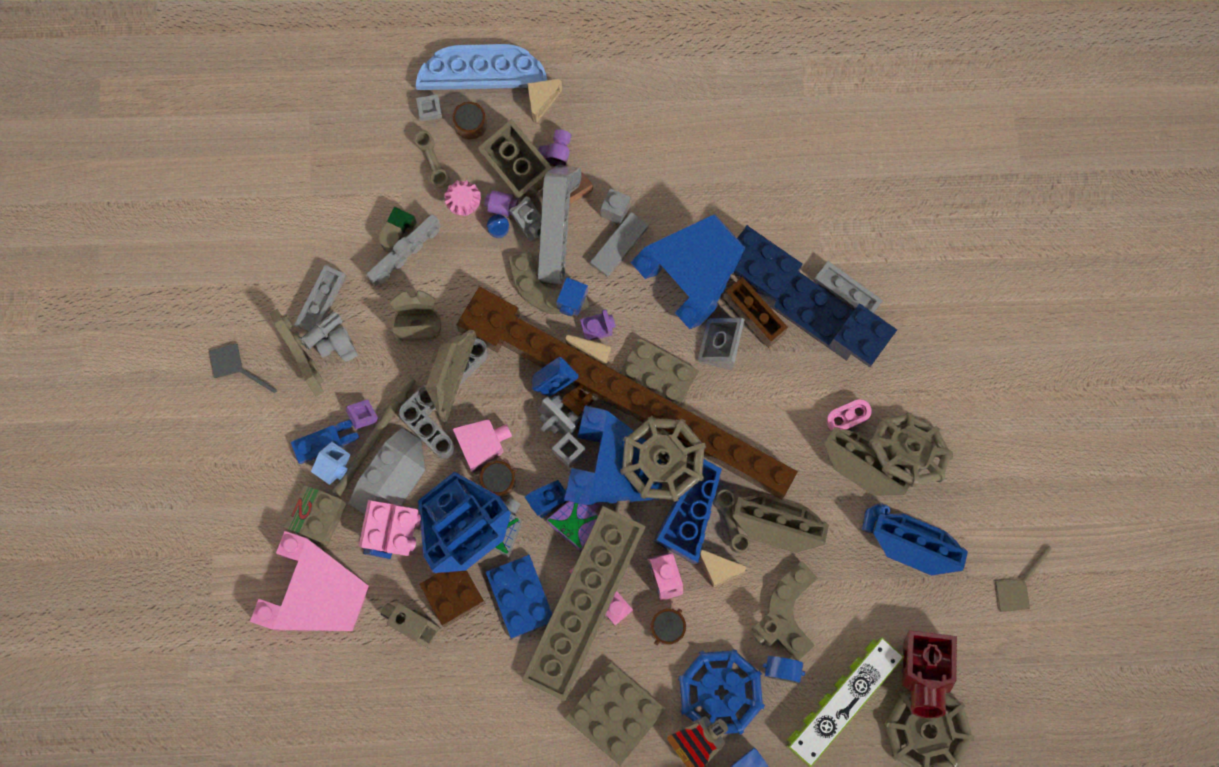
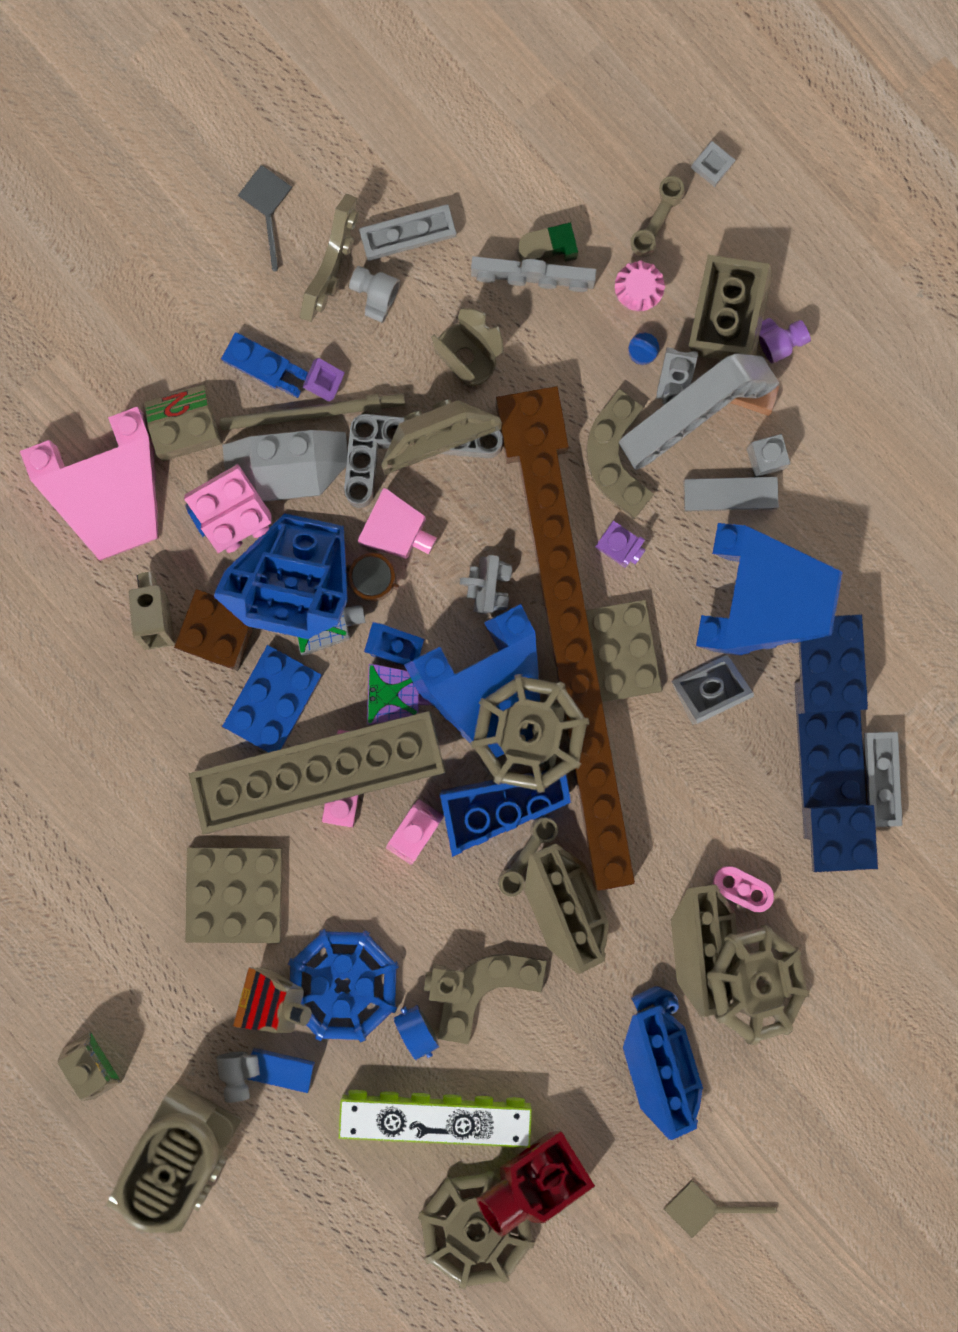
camera: 50 degrees right, 10 degrees up
(321, 330) = (374, 262): light grey axle -> none
(331, 463) = (246, 393): light blue brick -> none
(469, 120) = (735, 219): piece -> none
(480, 68) = (805, 181): light blue plate -> none
(500, 203) = (670, 330): medium lavender brick -> none
(542, 96) = (828, 273): tan slope -> none
(553, 377) = (524, 546): blue slope -> none
(568, 450) = (460, 626): light grey brick -> none
(572, 297) = (626, 493): blue brick -> none
(577, 400) = (522, 590): reddish brown tile -> none
(595, 350) = (591, 567): tan slope -> none
(668, 626) = (364, 877): pearl dark grey piece -> none
(719, 568) = (466, 883): tan slope -> none
(755, 311) = (773, 700): reddish brown brick -> none

